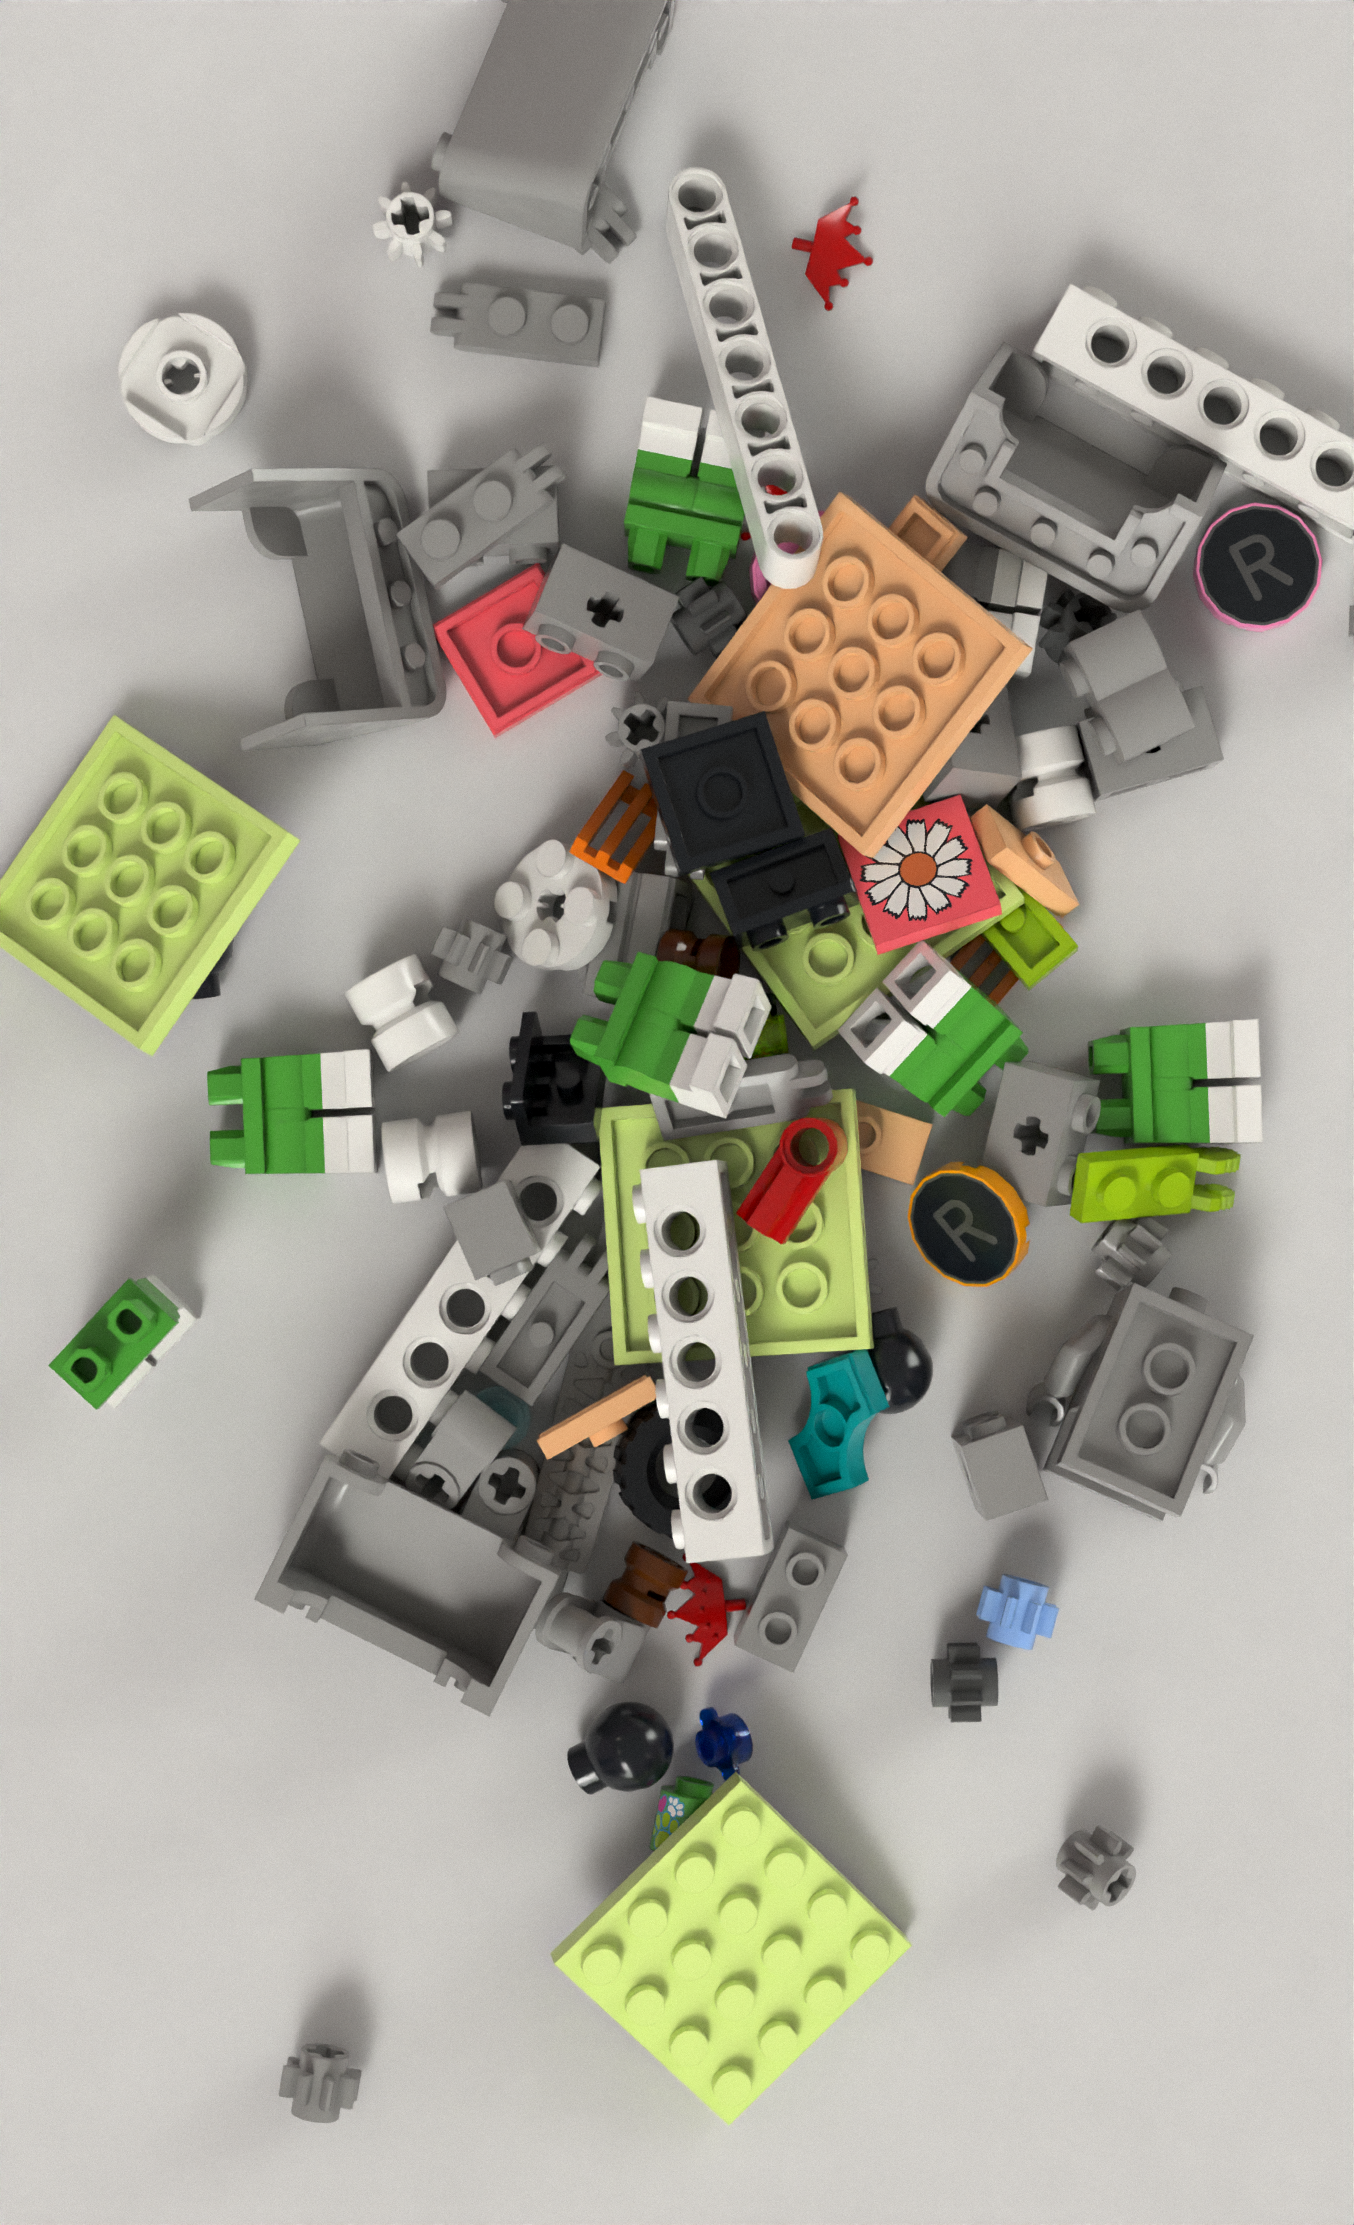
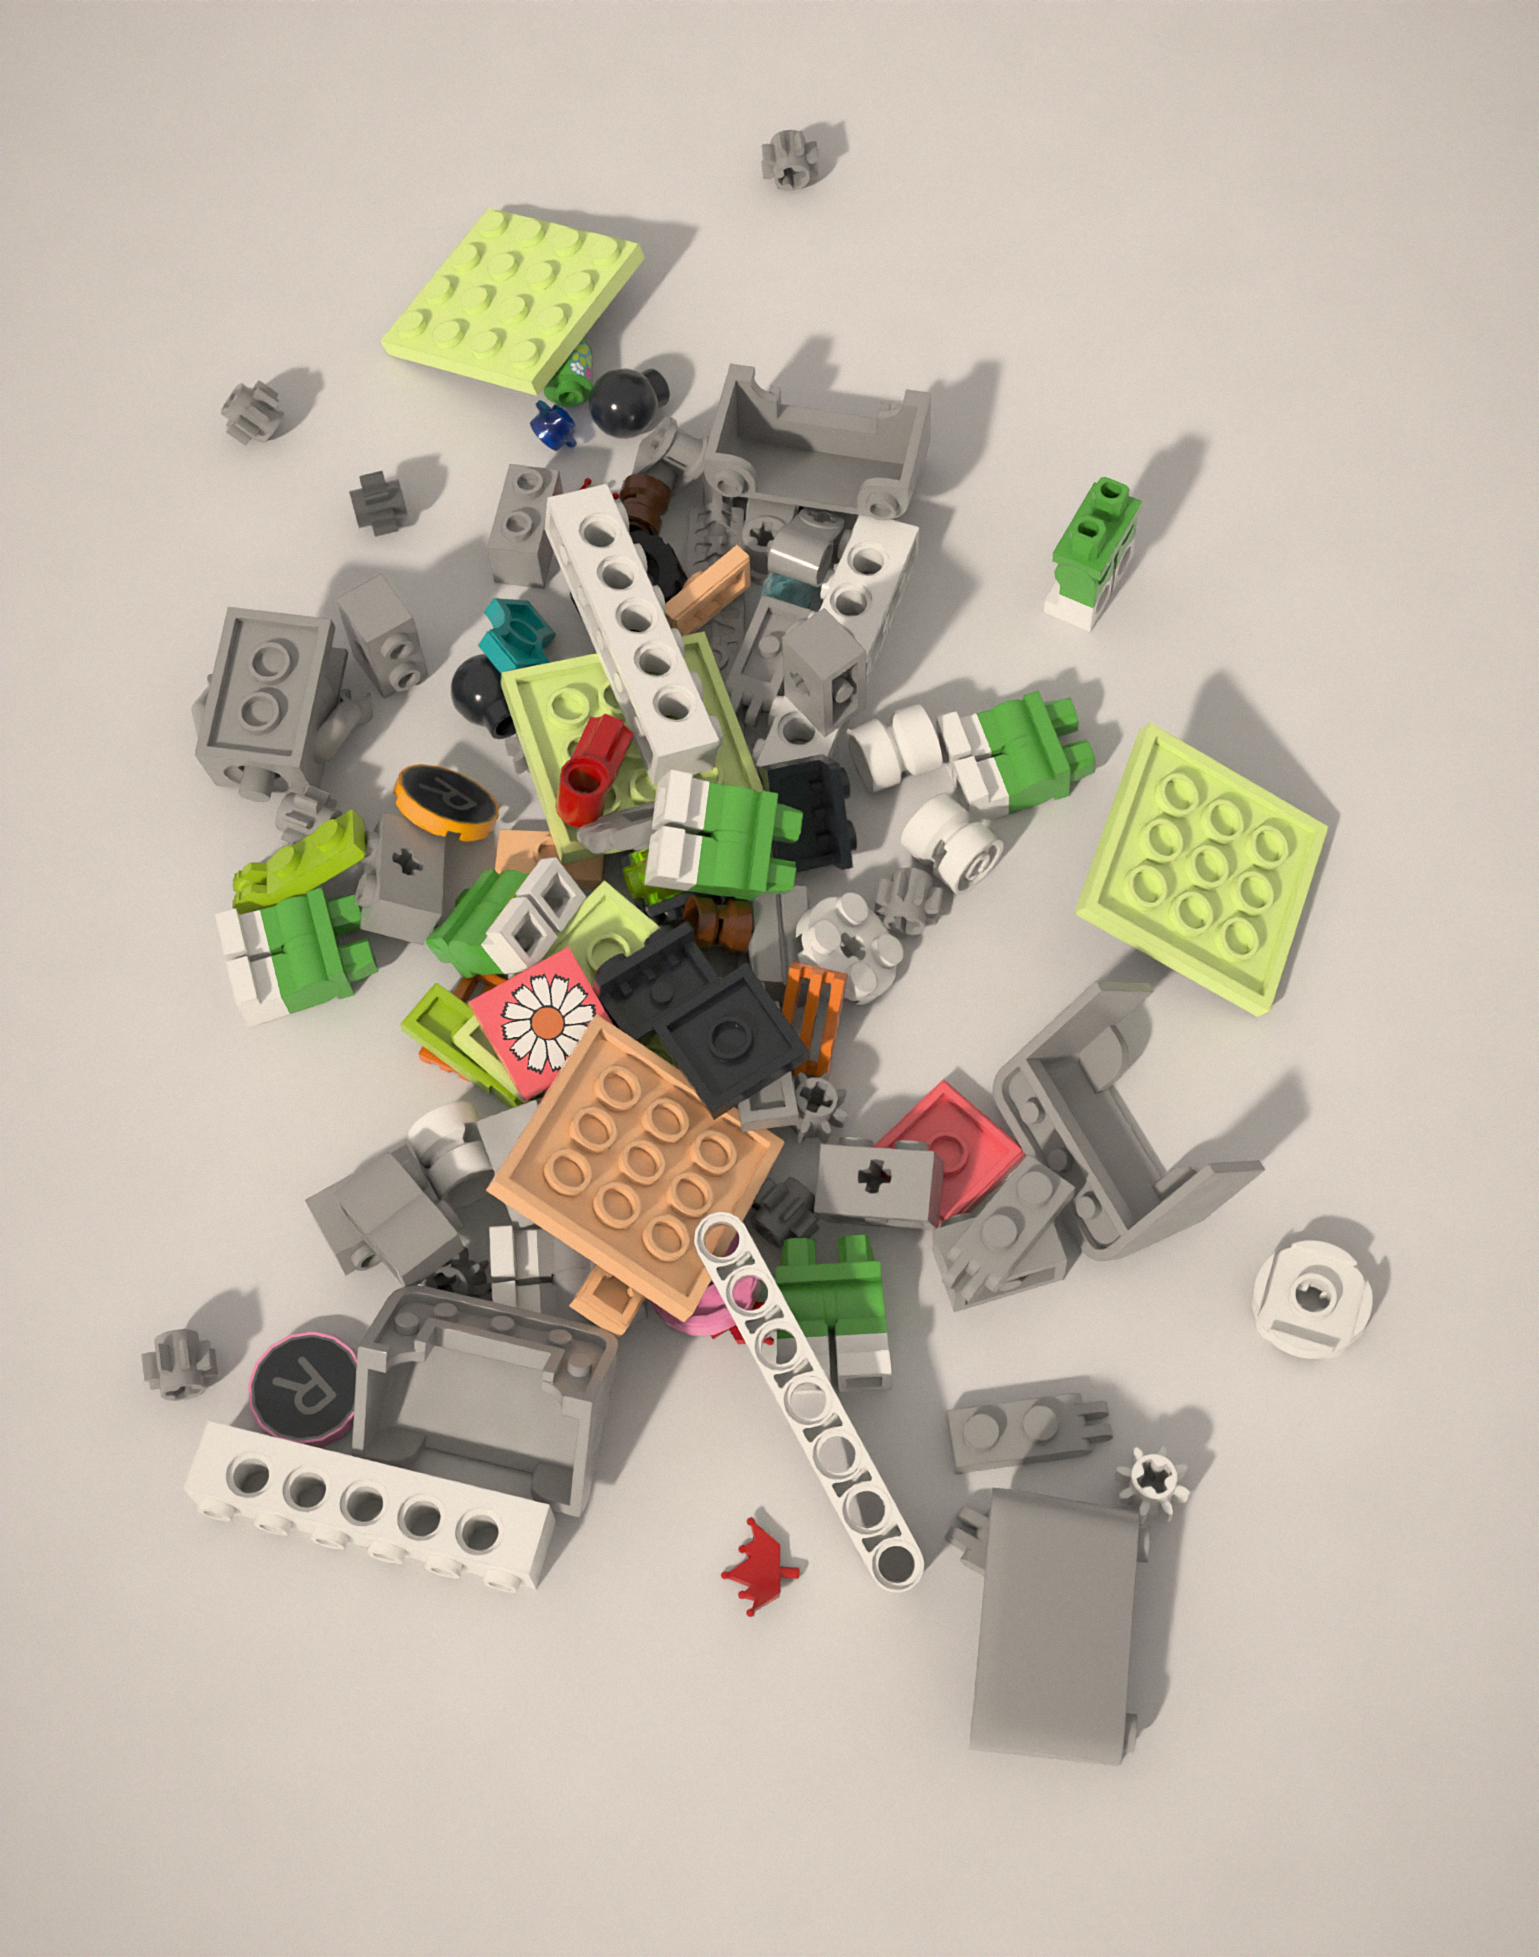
camera: 170 degrees right, 25 degrees down
(1017, 1611) = (347, 557): light blue gear -> none
(1024, 861) = (461, 1073): light nougat plate -> none

